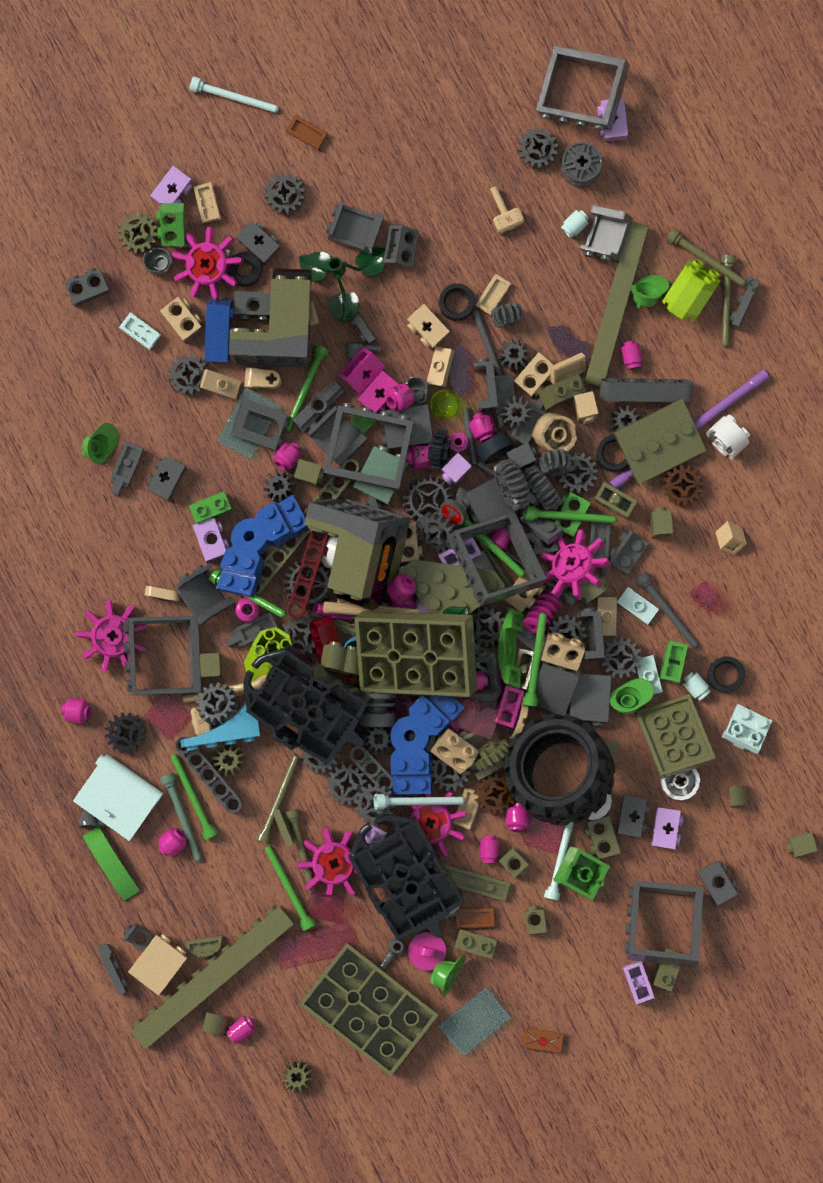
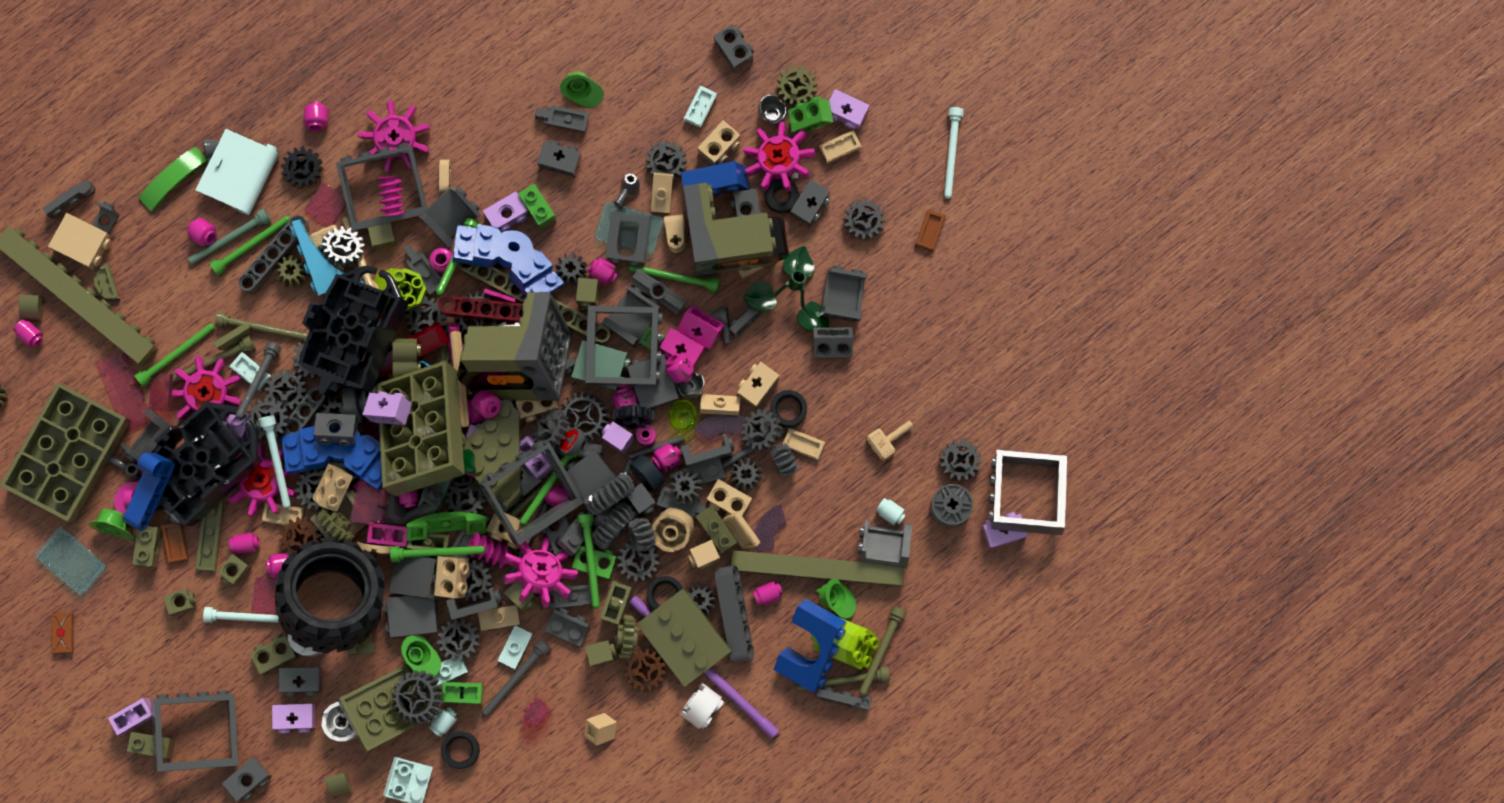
camera: 75 degrees right, 5 degrees down
(176, 645) = (391, 195): none -> dark pink piece
(209, 417) = (628, 188): none -> dark grey bar
(297, 557) = (500, 297): none -> dark pink piece
(306, 793) = (271, 352): none -> dark grey piece
(320, 816) = (247, 369): none -> light aqua plate
(370, 925) = (146, 440): none -> dark grey panel
(391, 681) = (387, 408): none -> lavender brick
(395, 726) = (327, 422): none -> dark grey brick
(426, 930) = (149, 489): none -> blue beam
(475, 339) = (768, 425): none -> dark grey gear
(581, 873) = (232, 639): bright green brick -> none
(649, 495) = (626, 636): none -> olive gear
(664, 700) = (419, 689): none -> dark grey gear
(681, 301) = (828, 631): none -> blue arch

